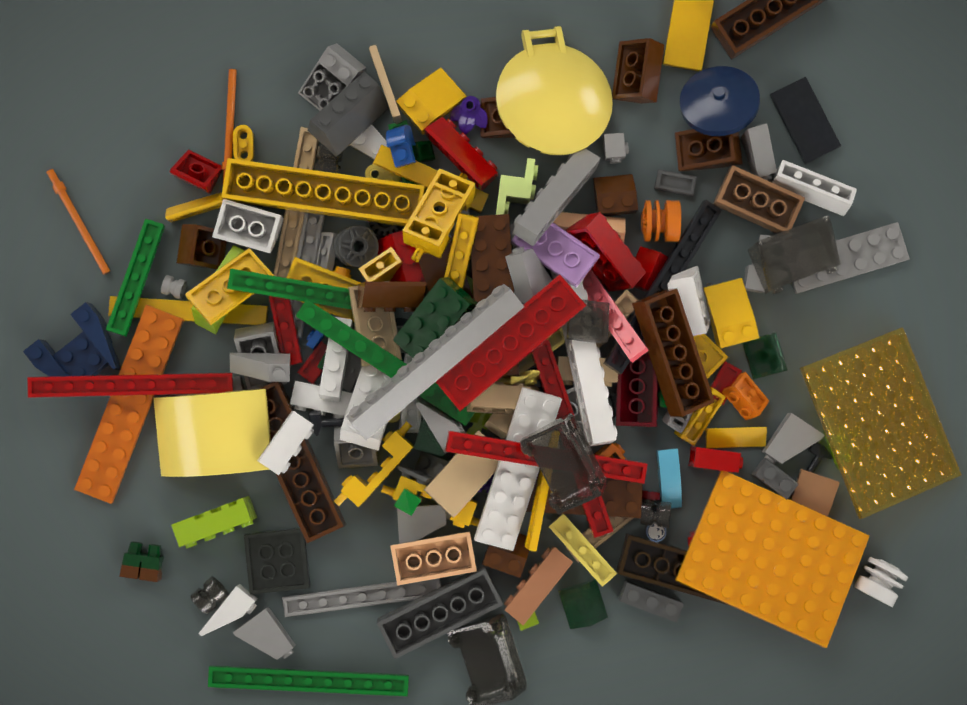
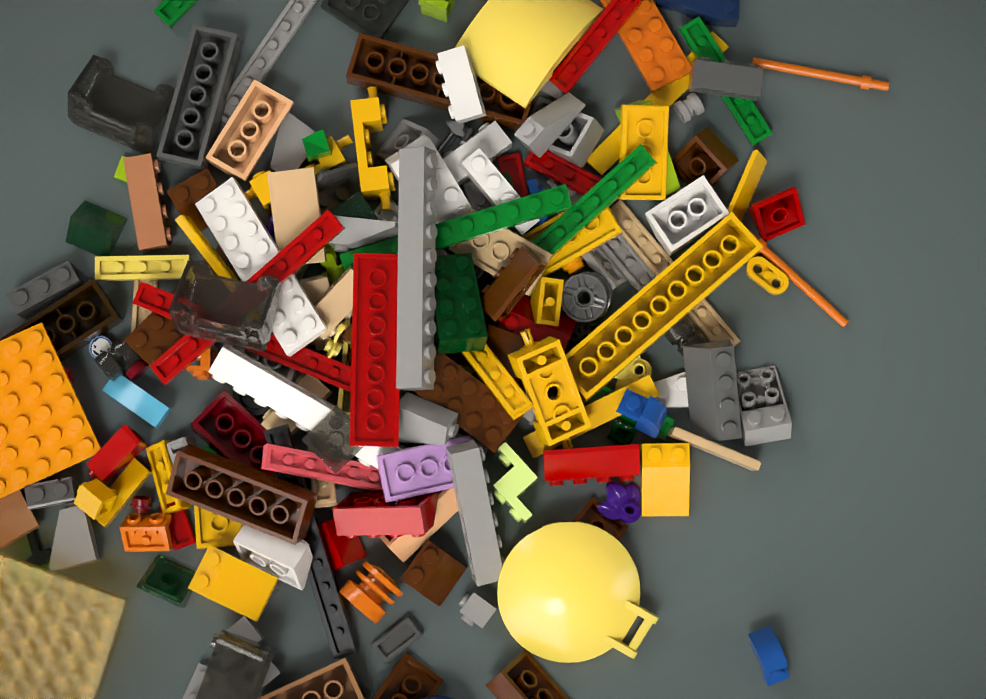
camera: 130 degrees right, 5 degrees down
(134, 275) = (726, 79): none -> dark grey brick
(731, 416) = (141, 504): none -> dark red plate
(755, 446) = (95, 498): none -> yellow brick

